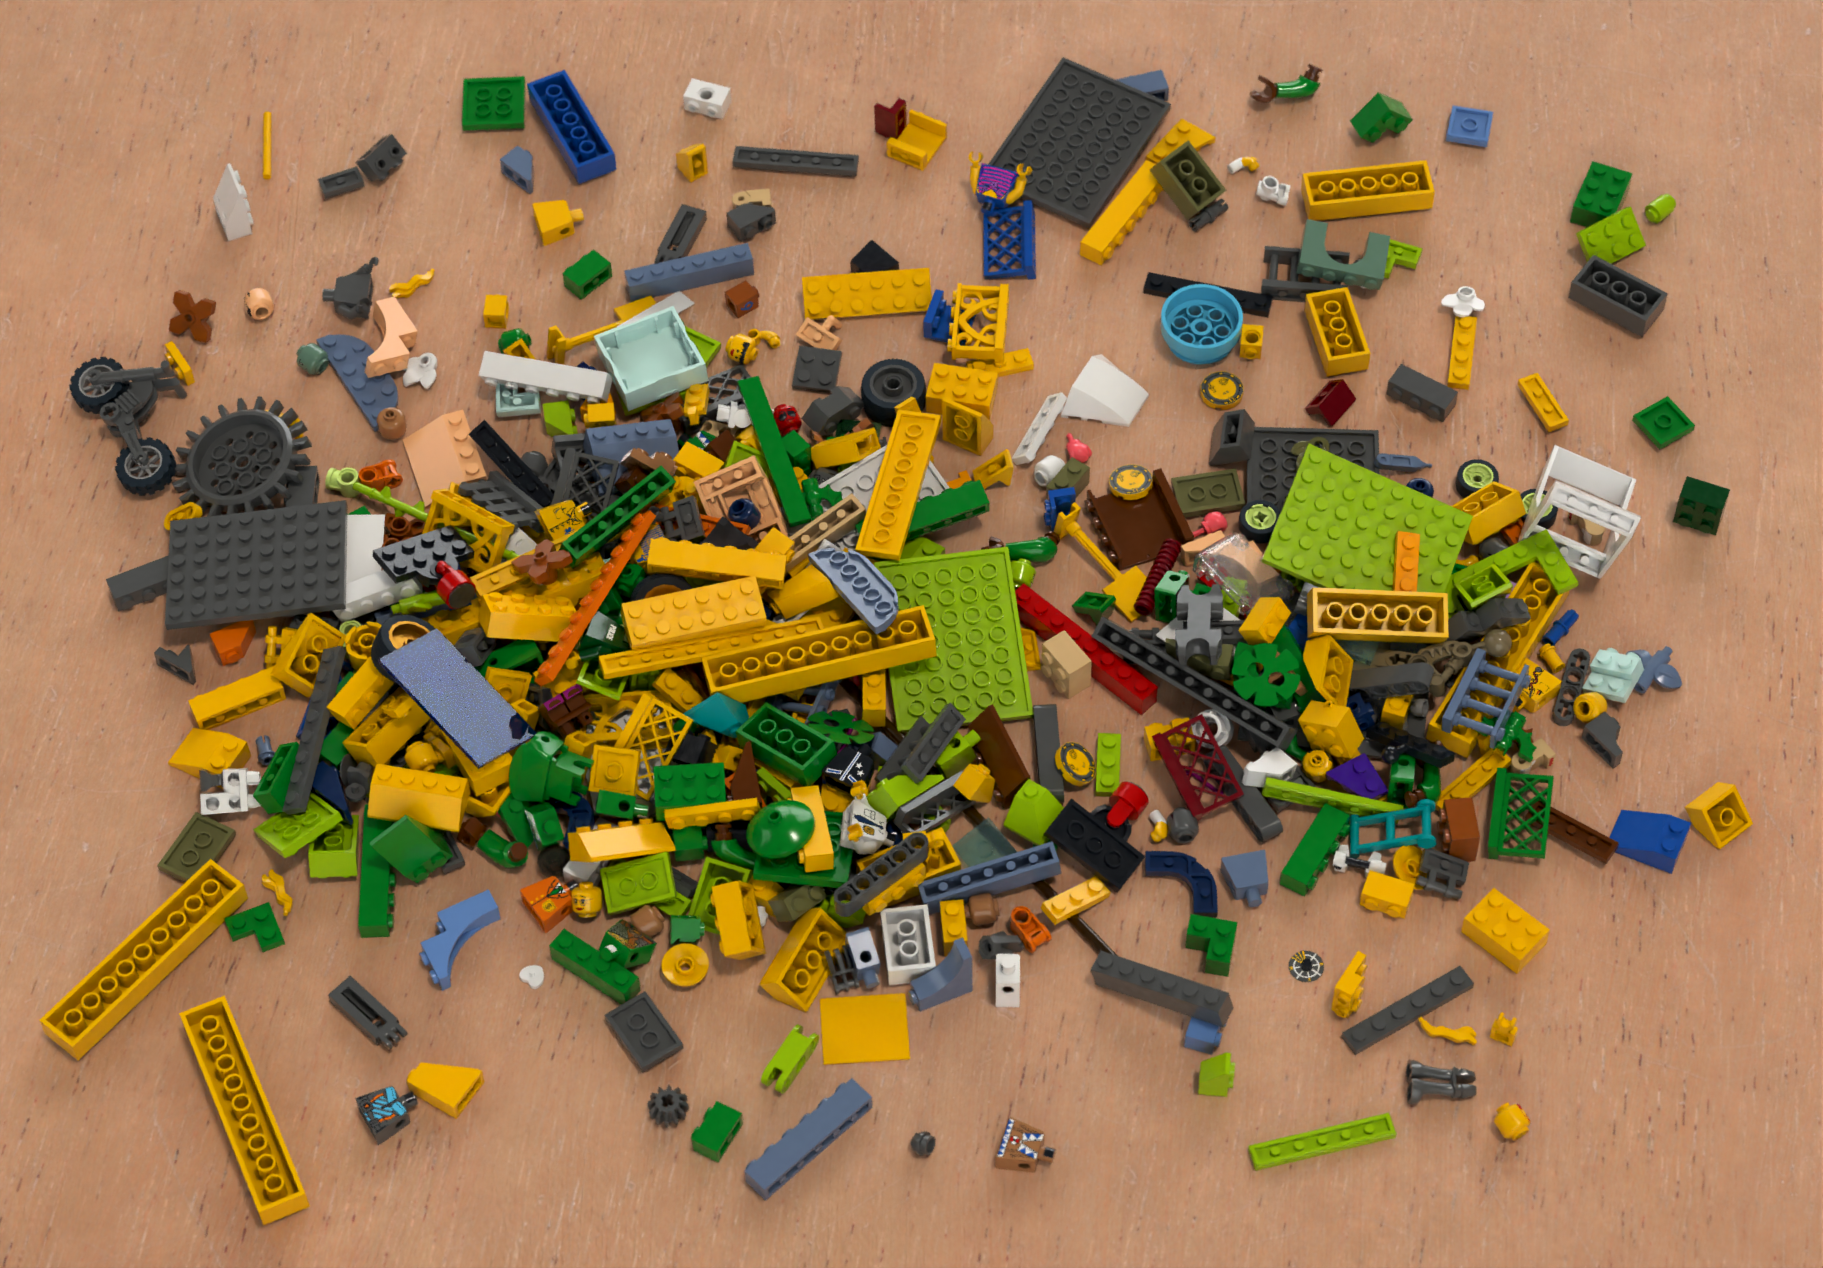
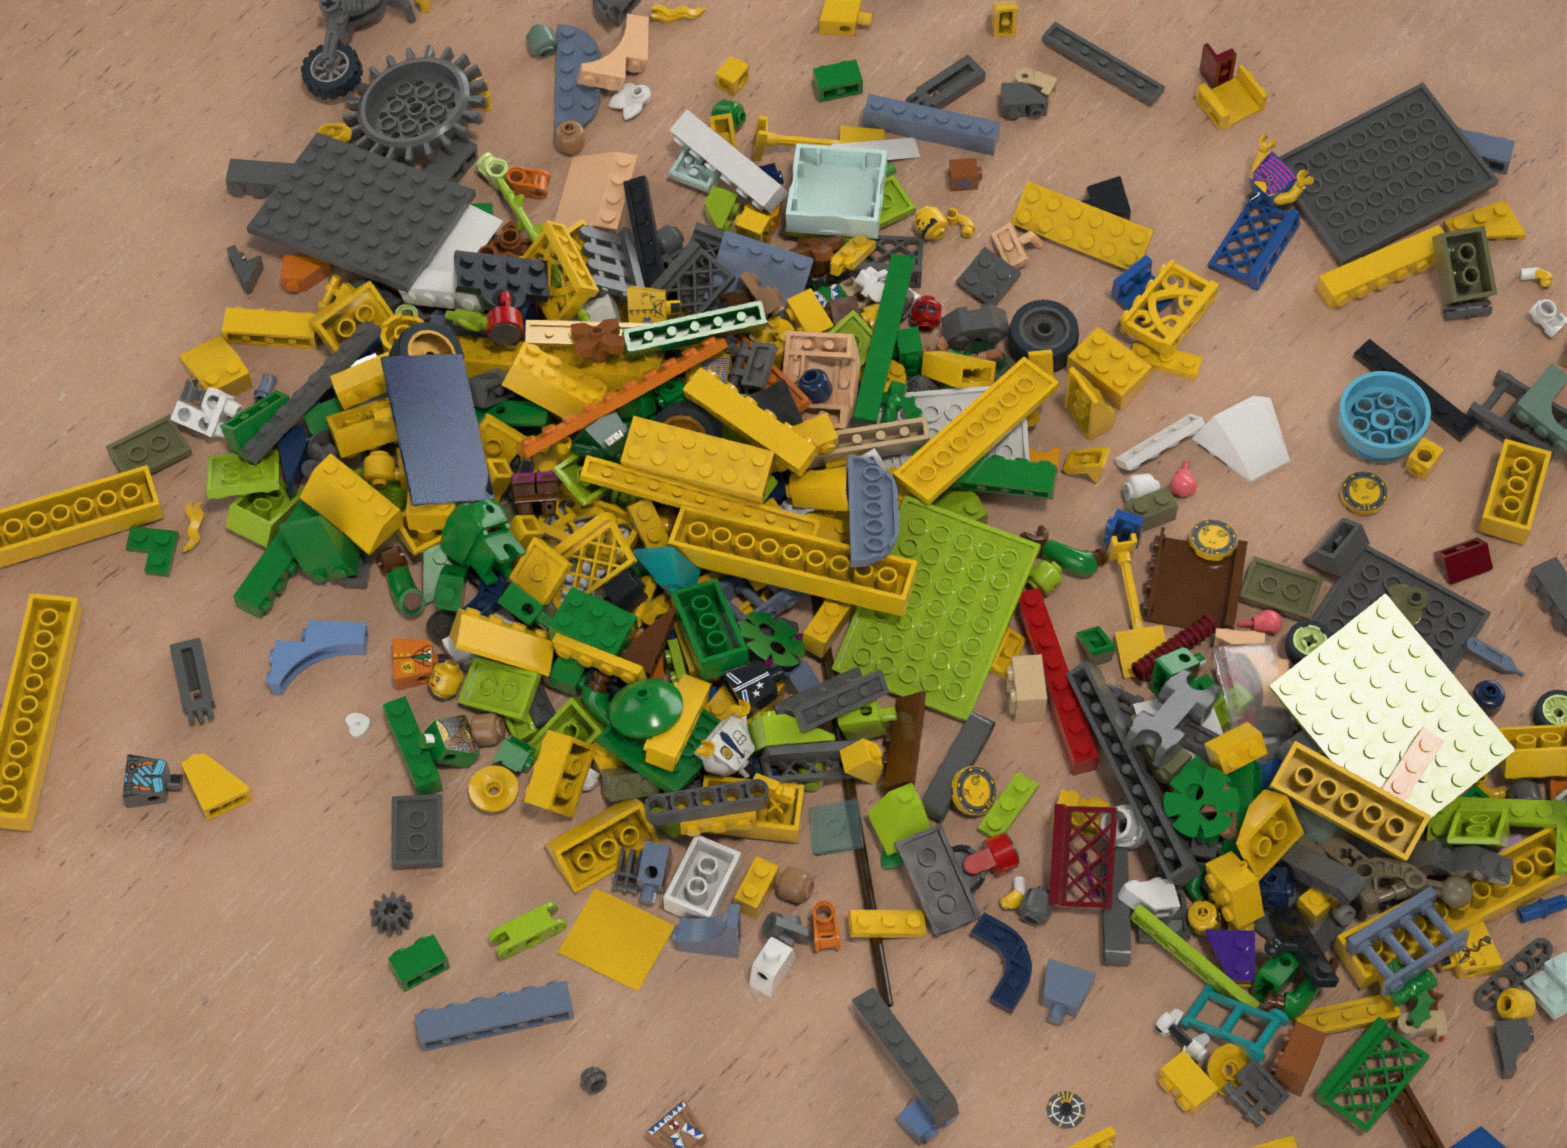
camera: 30 degrees right, 5 degrees up
(992, 876) = (819, 858): sand blue brick -> none
(1215, 938) = (993, 1034): green brick -> none
(1315, 849) = (1147, 1000): green brick -> none
(1549, 654) = (1513, 934): yellow pin -> none

